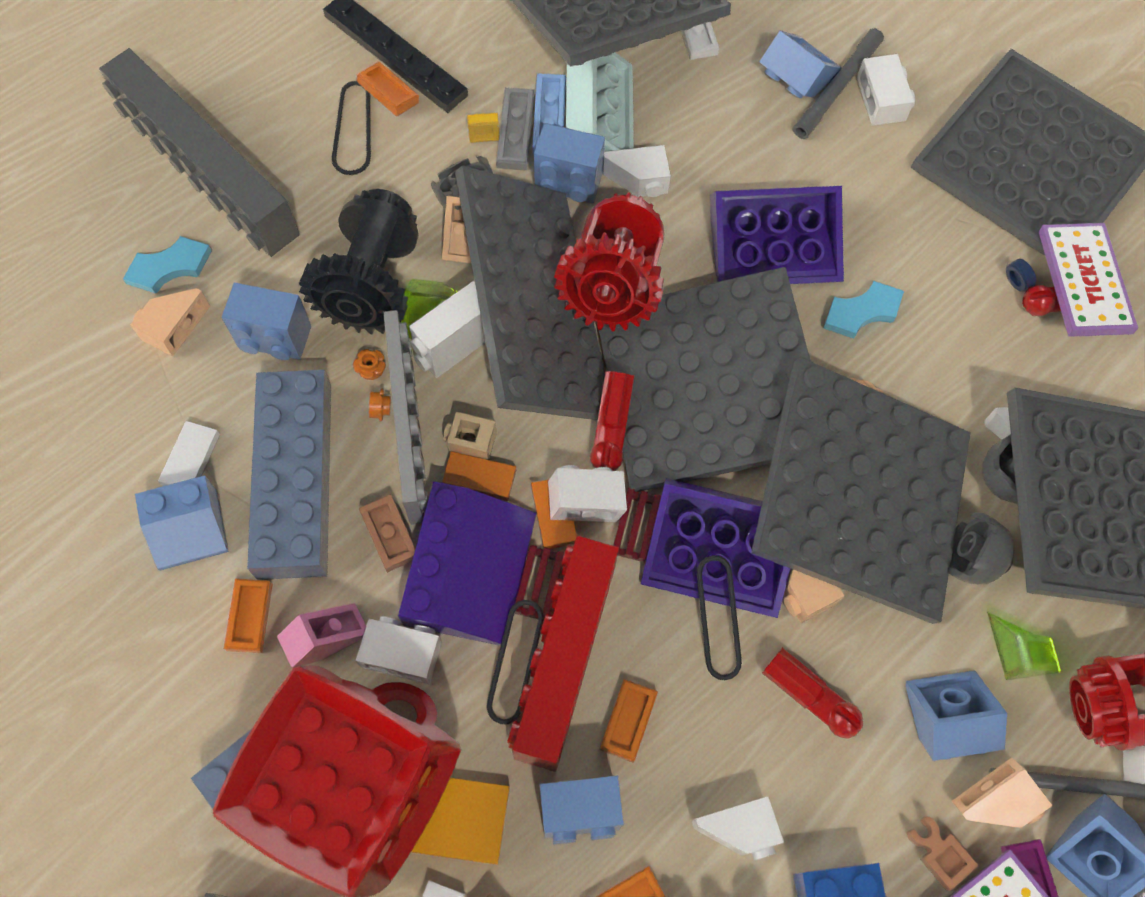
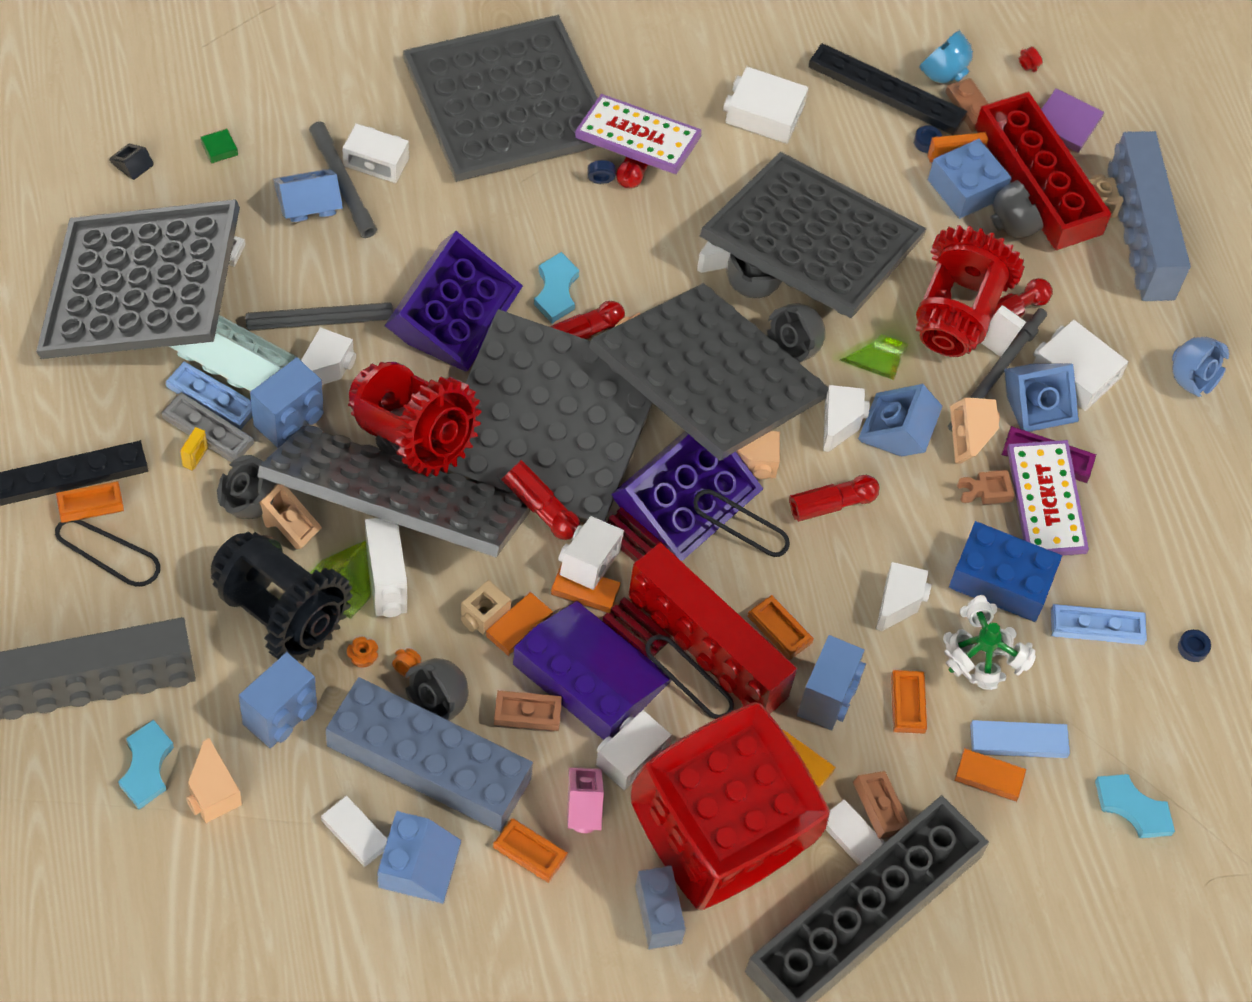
camera: 65 degrees left, 10 degrees down
(362, 445) = (438, 687): none -> dark grey cylinder
(405, 416) = (433, 638): light grey plate -> none
(684, 142) = (318, 316): none -> dark grey axle
(834, 353) = (595, 321): none -> red piece
(918, 650) = (843, 414): none -> white slope

